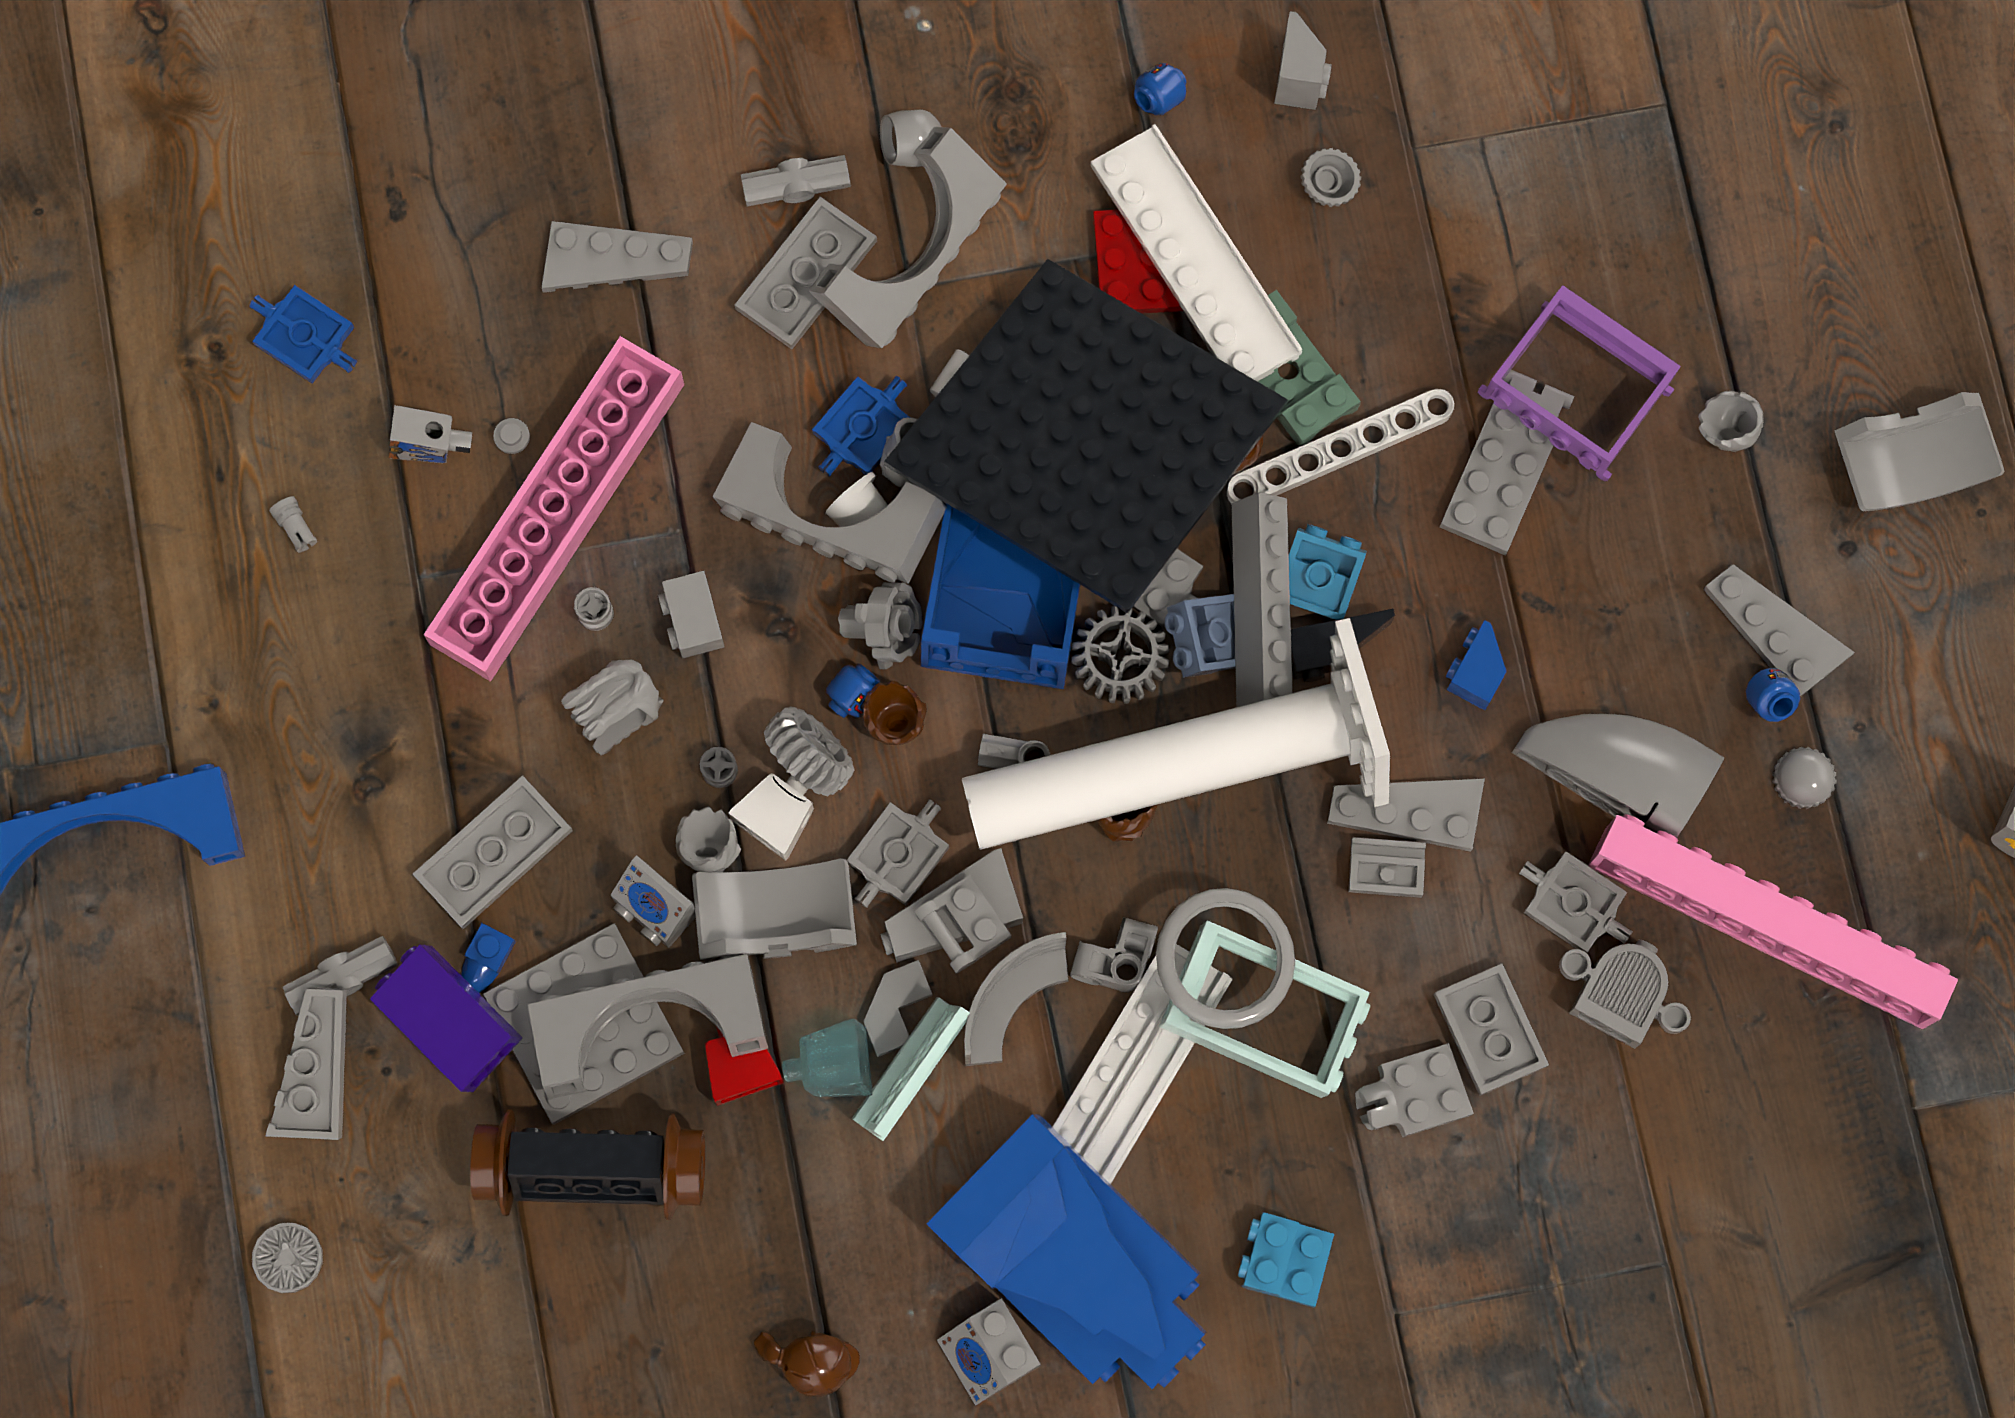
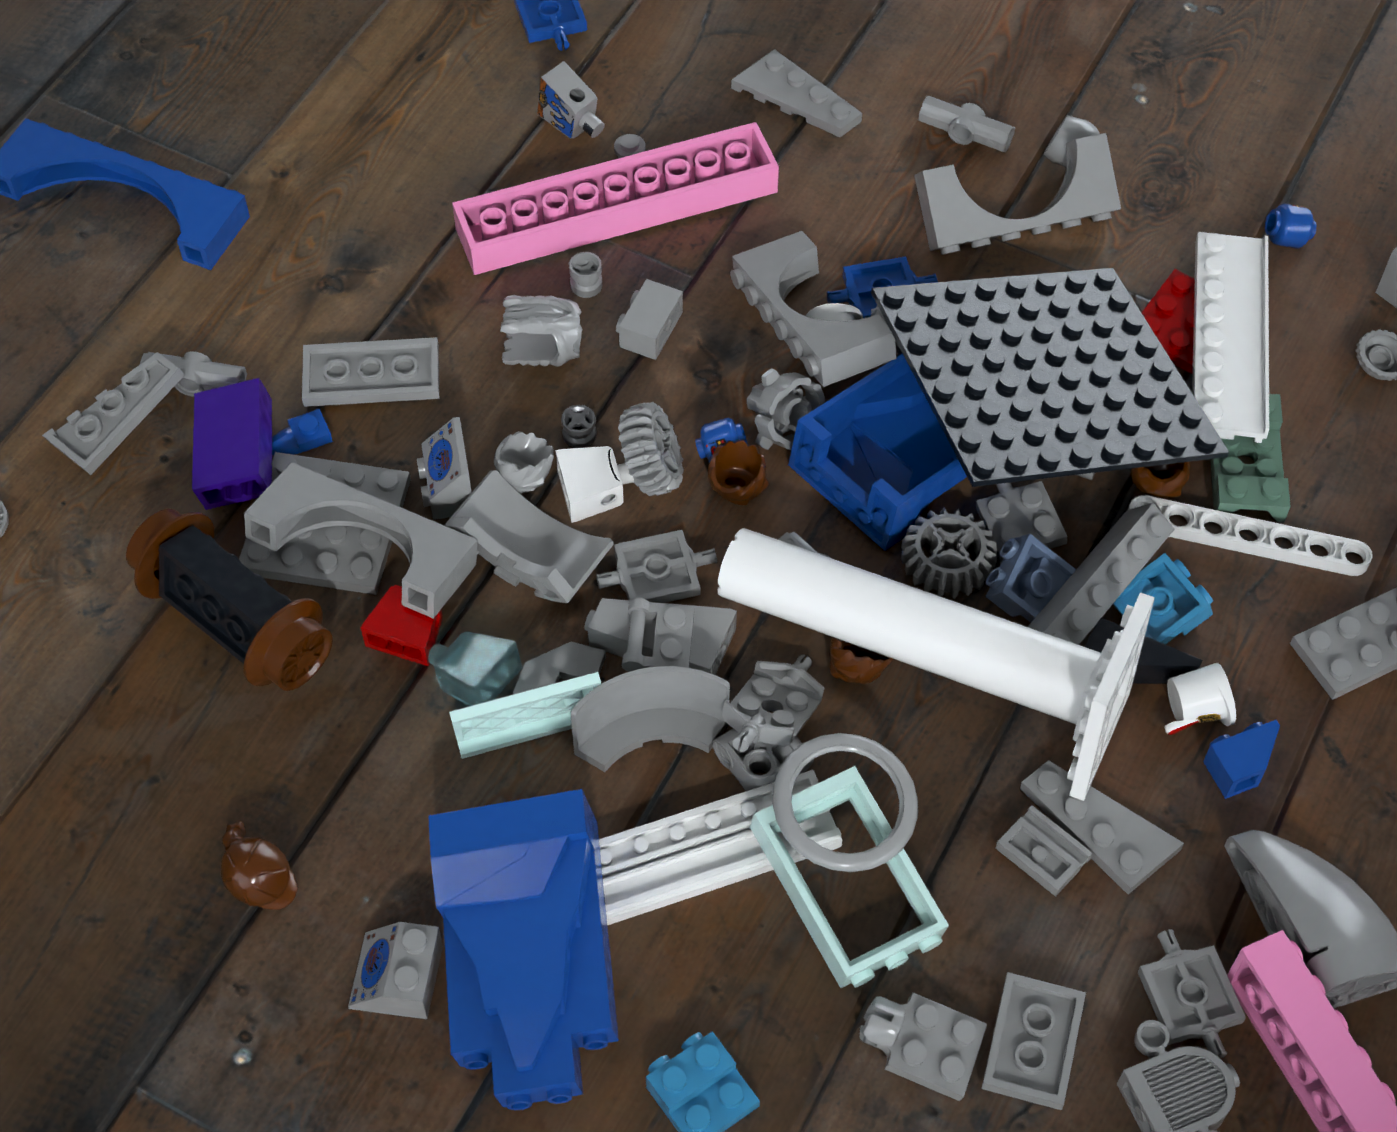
camera: 40 degrees right, 20 degrees down
(290, 518) = (438, 101): light grey pin -> none
(780, 293) = (891, 182): light grey plate -> none
(1092, 886) = (774, 688): none -> light grey plate
(1412, 641) = (1200, 698): none -> white hat

